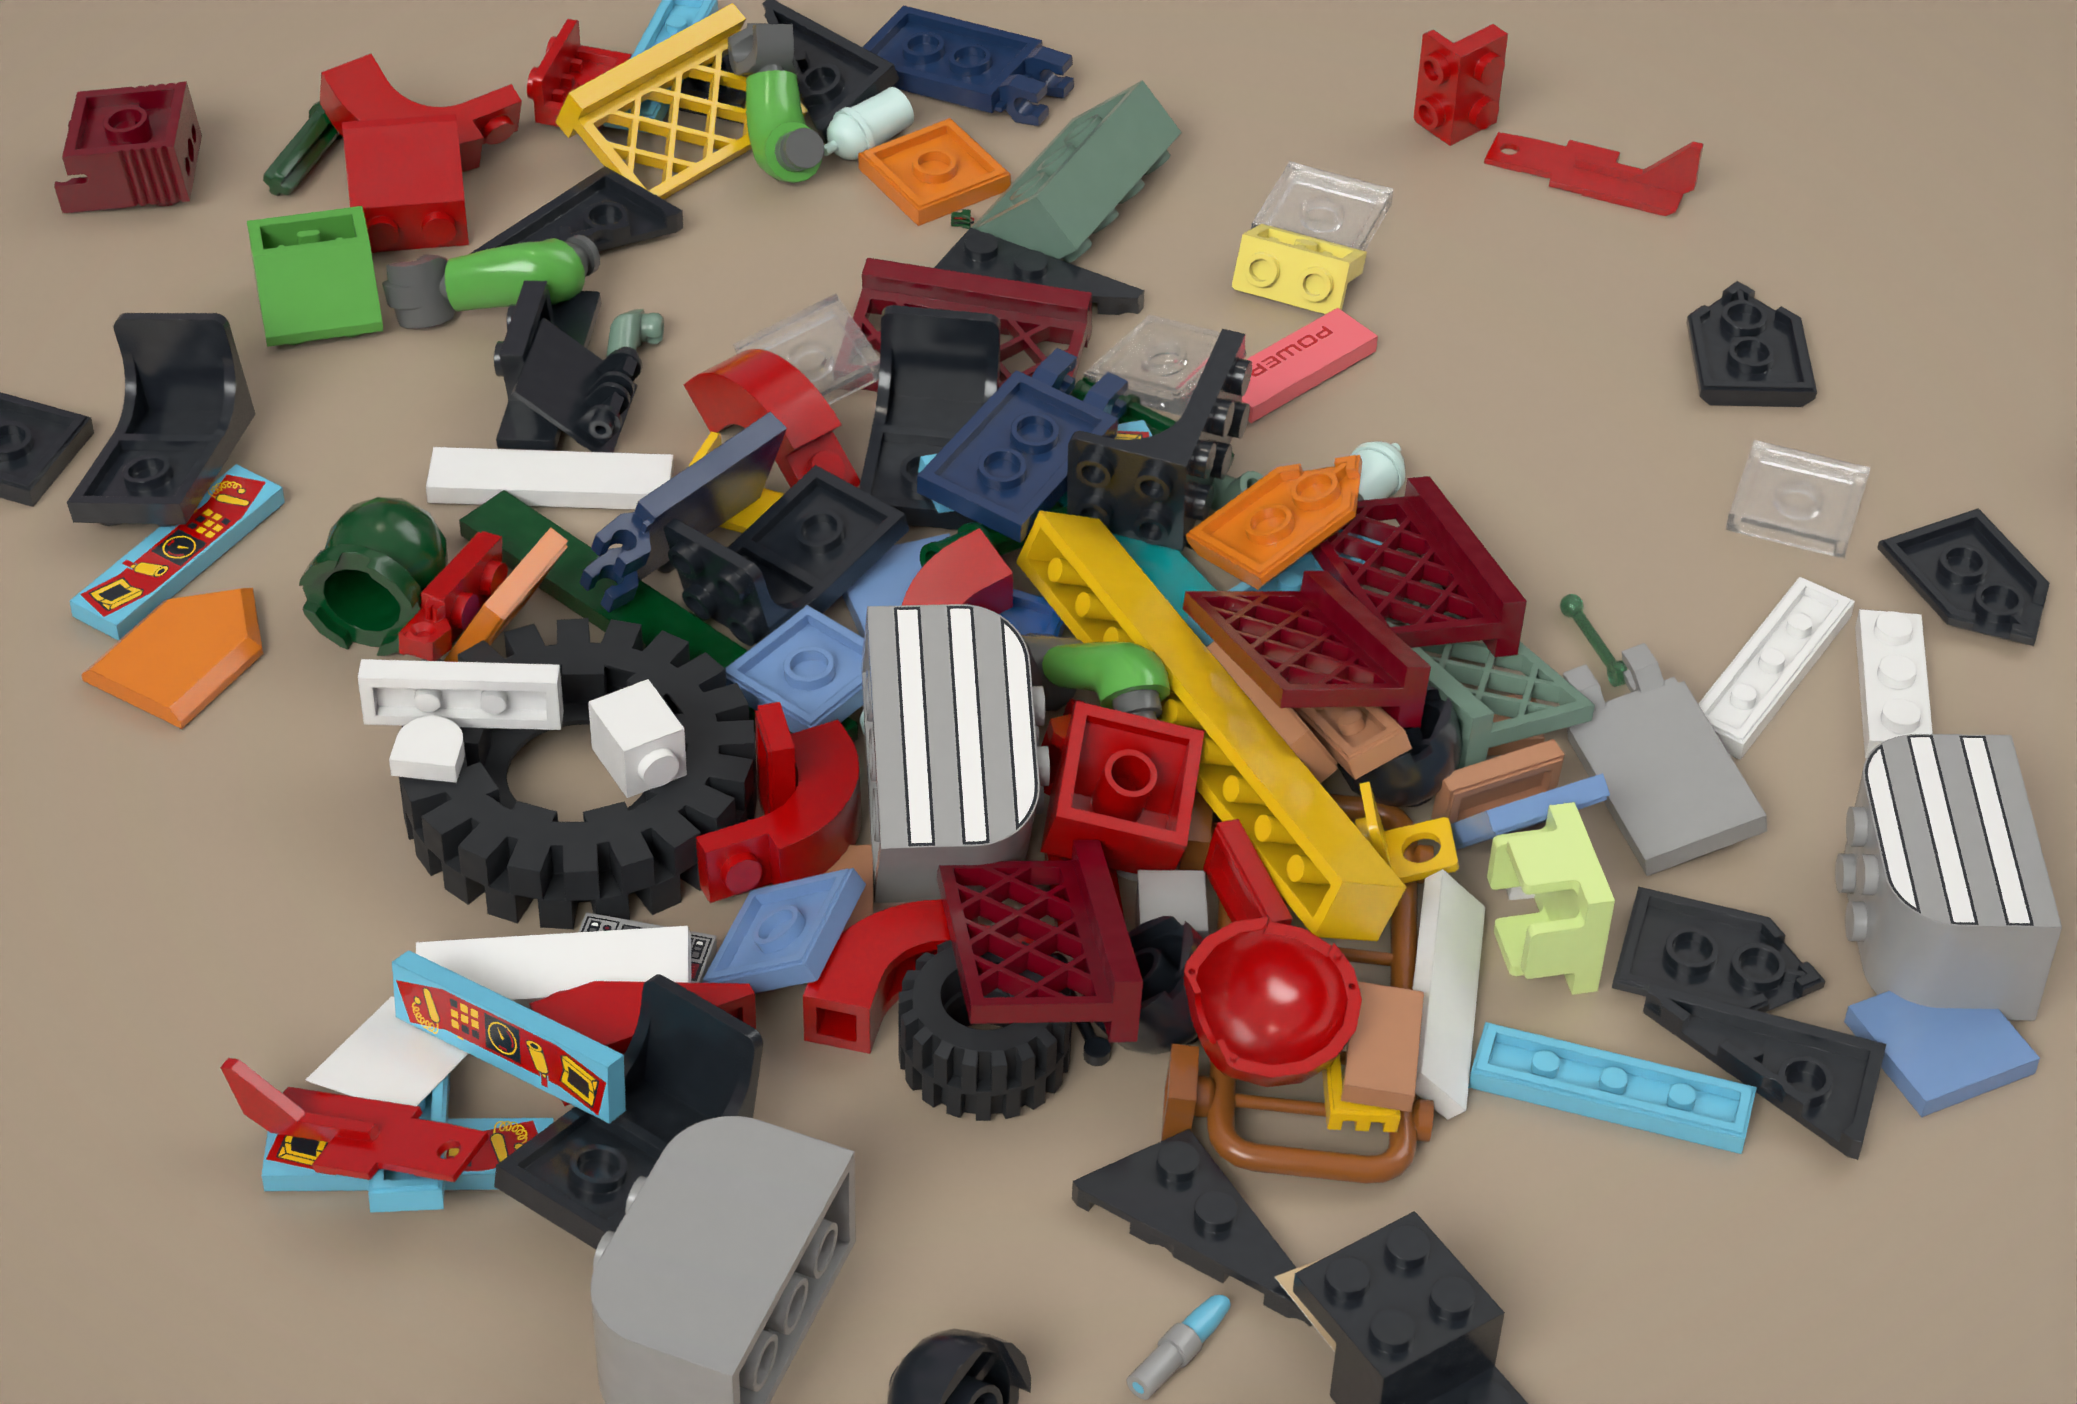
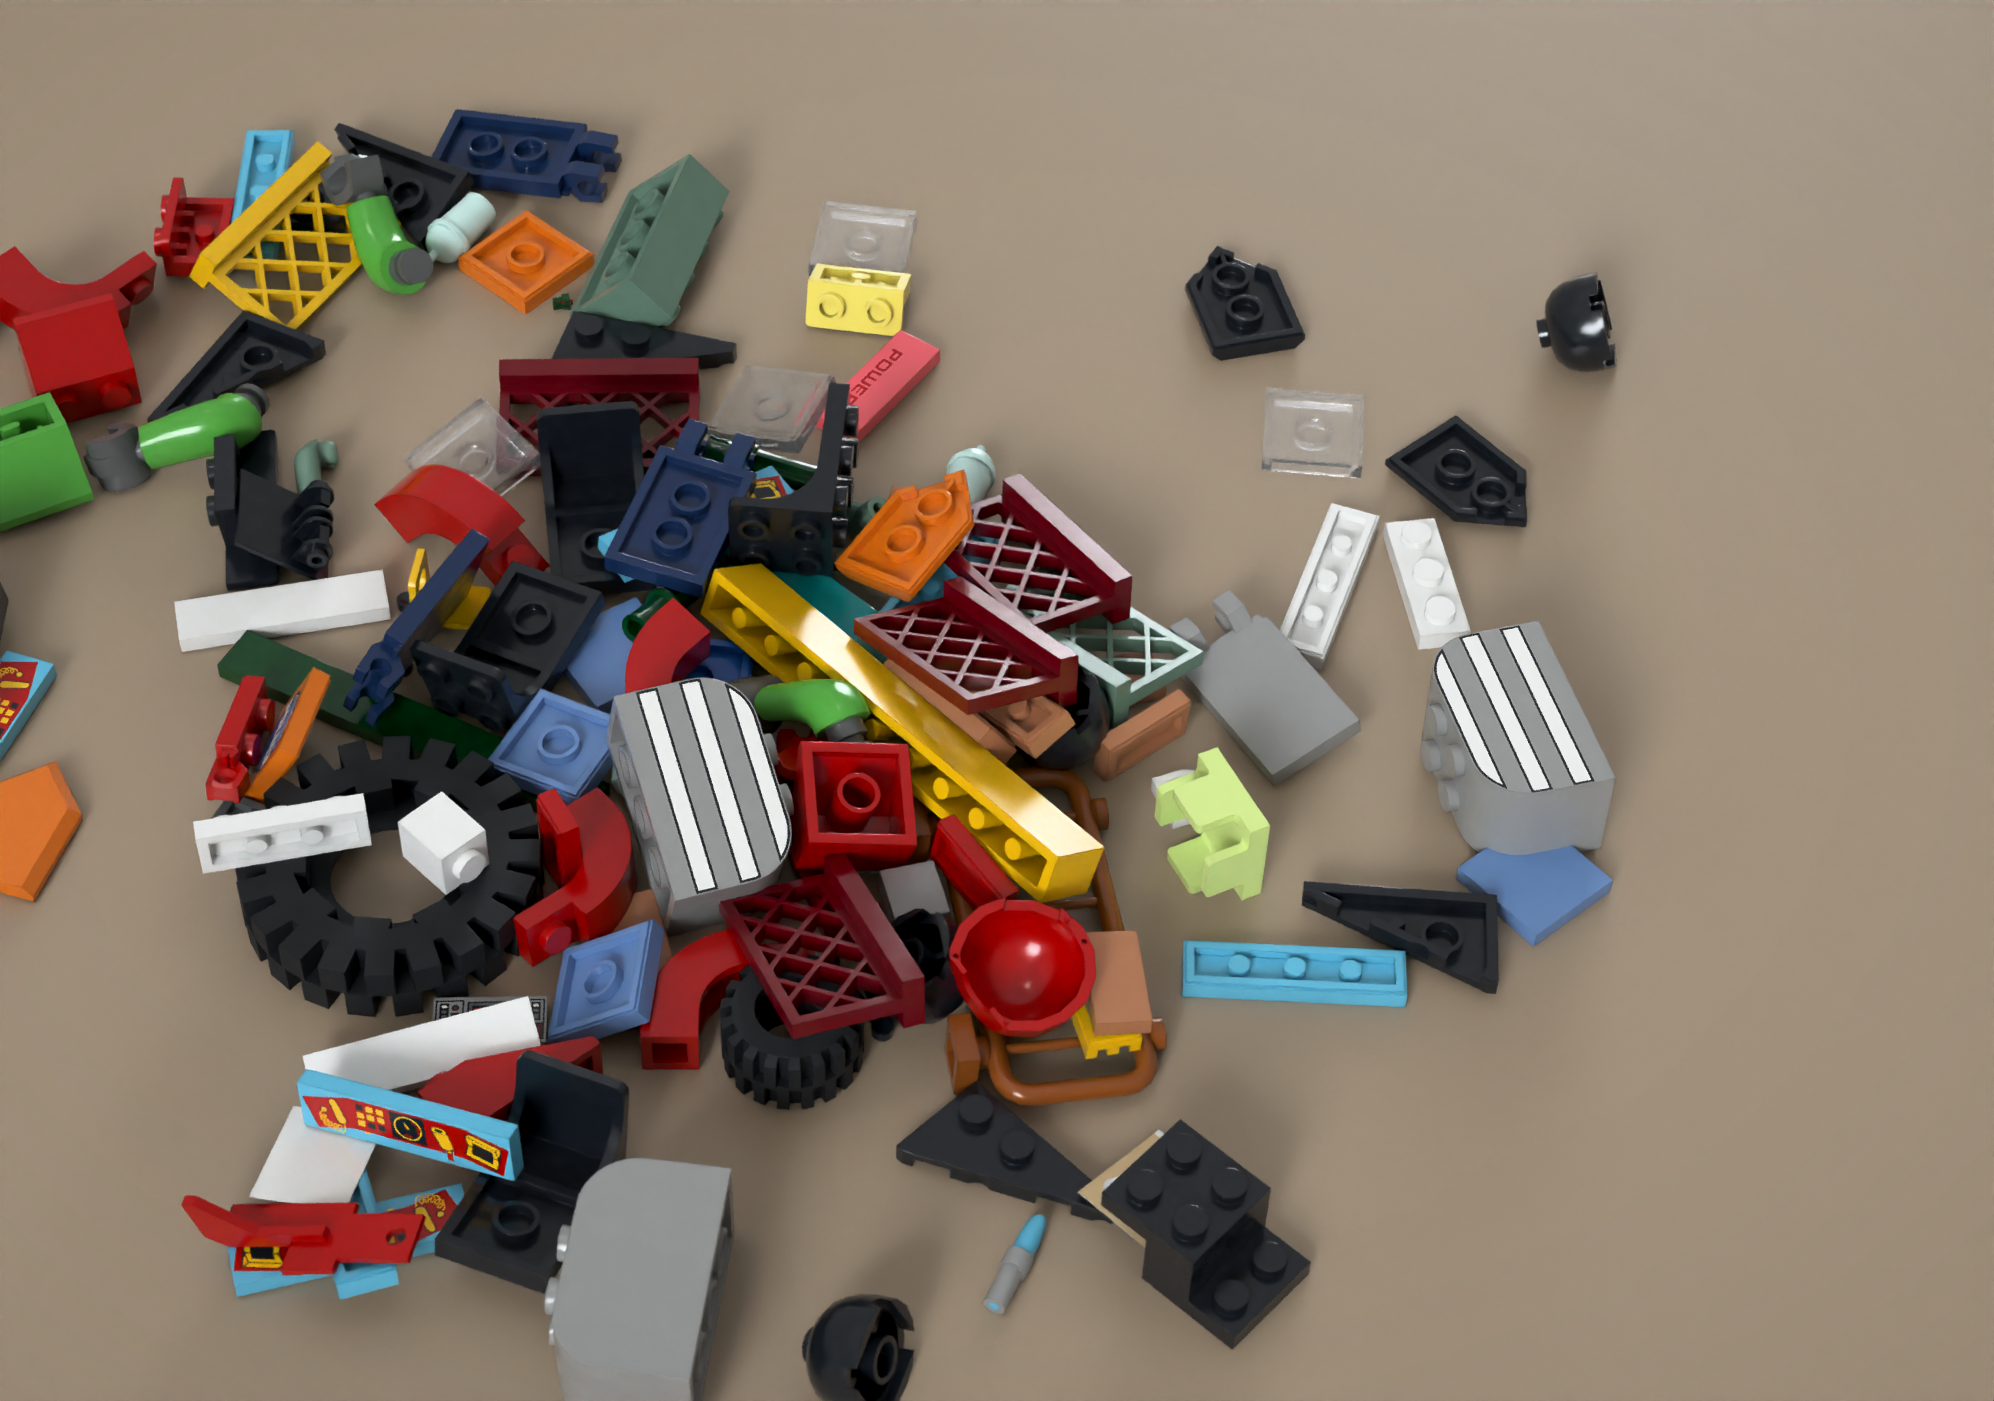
camera: 15 degrees left, 5 degrees up
(373, 573) = (166, 732): dark green tile -> none
(428, 750) = (268, 887): white tile -> none
(1393, 842) = (1073, 802): yellow bracket -> none
(1449, 977) = (1145, 909): white tile -> none
(1460, 83) = (950, 107): red bracket -> none
(1527, 811) = (1170, 757): medium blue tile -> none
(1572, 607) = (1158, 563): clear green hinge -> none
(1598, 174) = (1073, 165): red piece -> none
(1710, 953) = (1340, 845): black tile -> none

